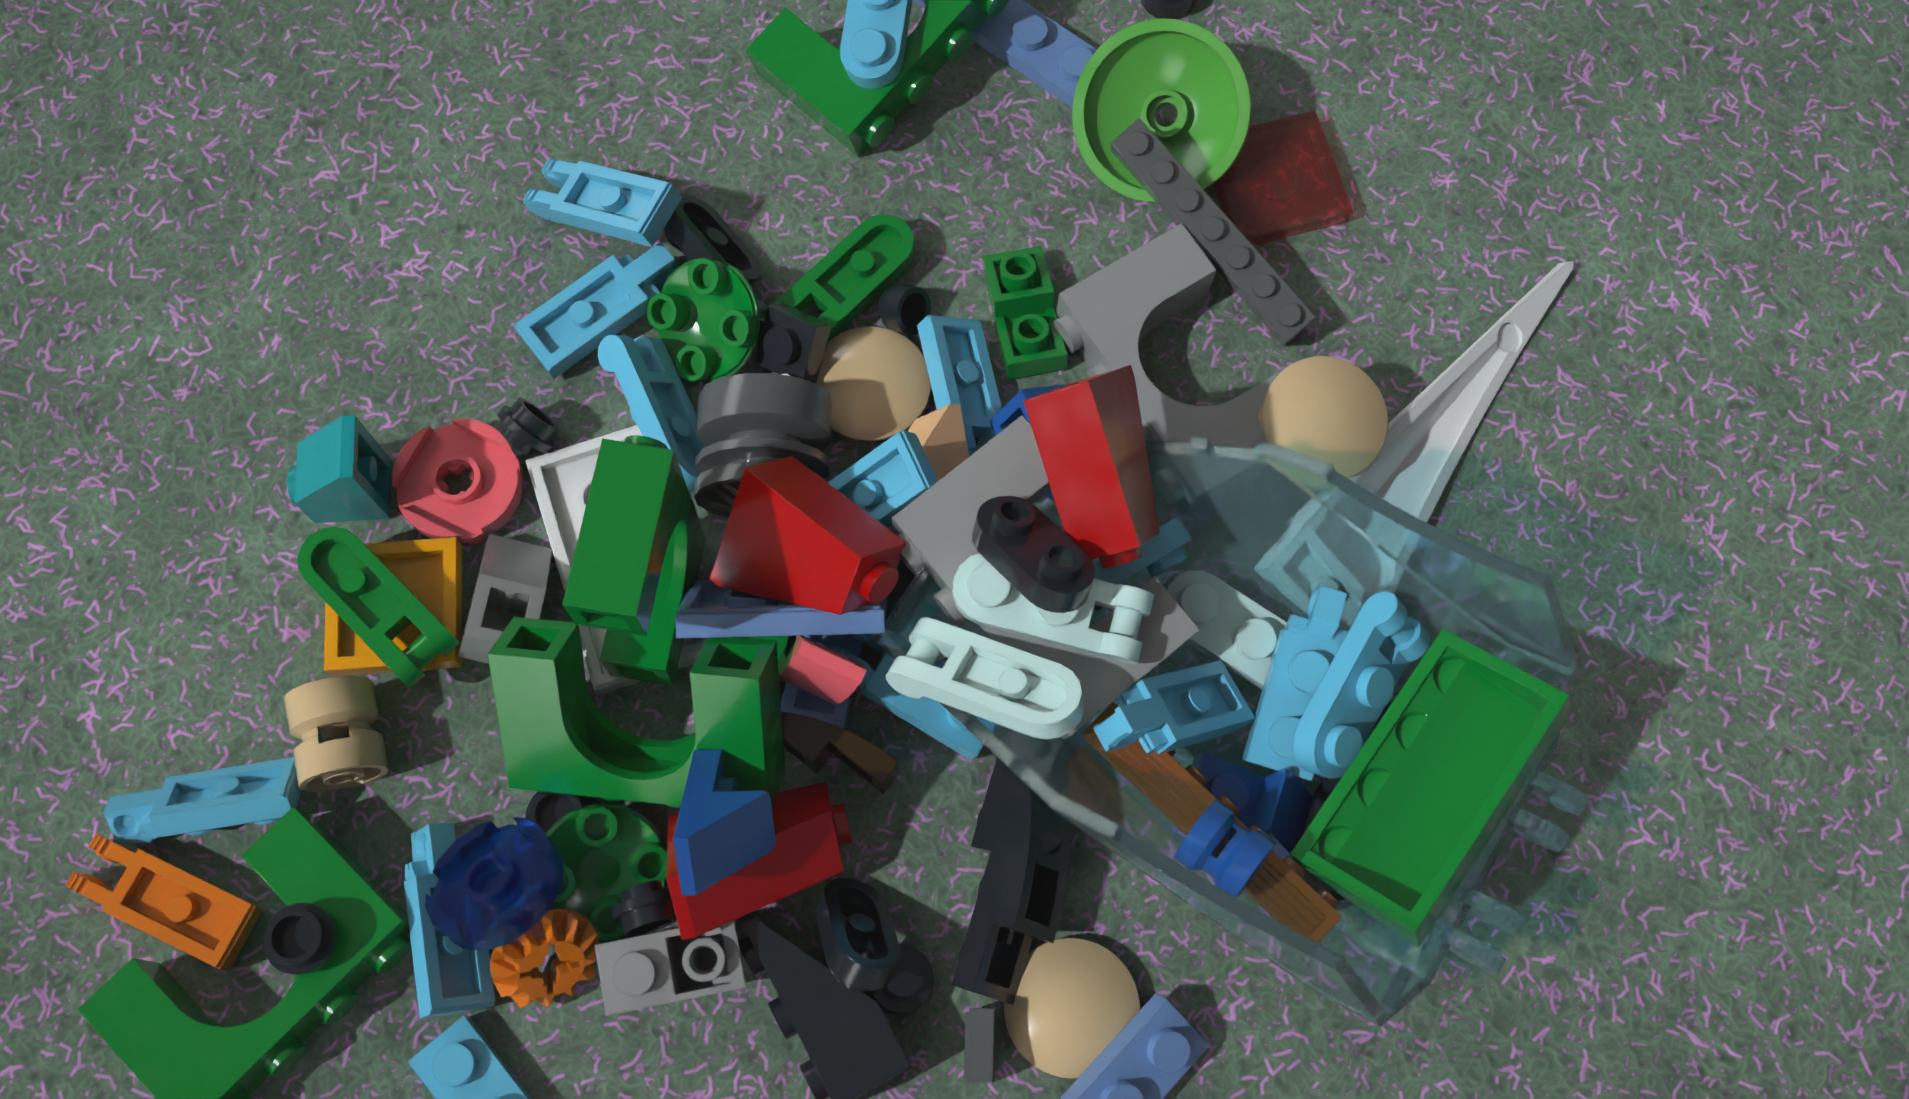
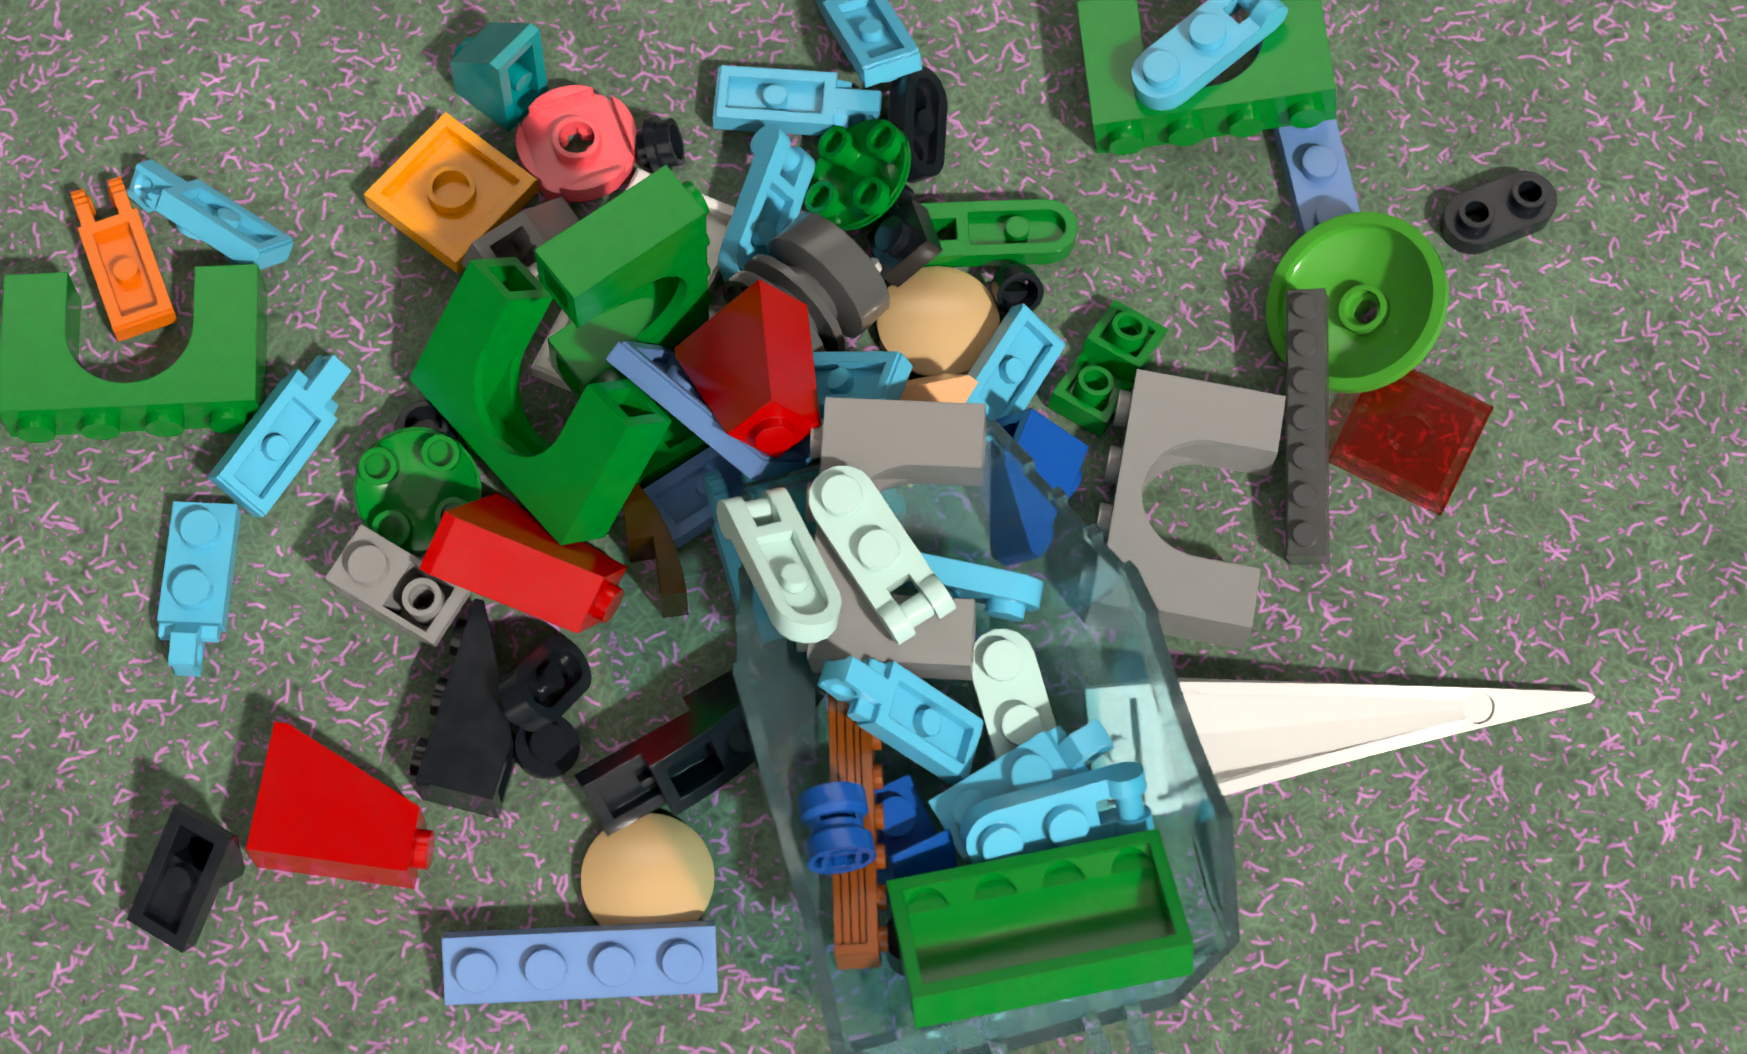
camera: 40 degrees right, 5 degrees down
(300, 939) = (180, 350): black plate -> none
(336, 734) = (335, 237): tan wheel -> none
(372, 601) = (437, 173): green plate -> none
(495, 884) = (336, 432): clear blue tile -> none
(517, 963) = (310, 490): orange gear -> none
(644, 909) = (414, 531): black plate -> none
(718, 825) = (510, 505): blue slope -> none
(820, 670) = (686, 470): coral slope -> none
(979, 1045) = (555, 838): dark grey tile -> none
(1033, 554) = (892, 499): black plate -> none
(1097, 464) = (1004, 478): red slope -> none
(1326, 413) = (1245, 626): tan dish -> none

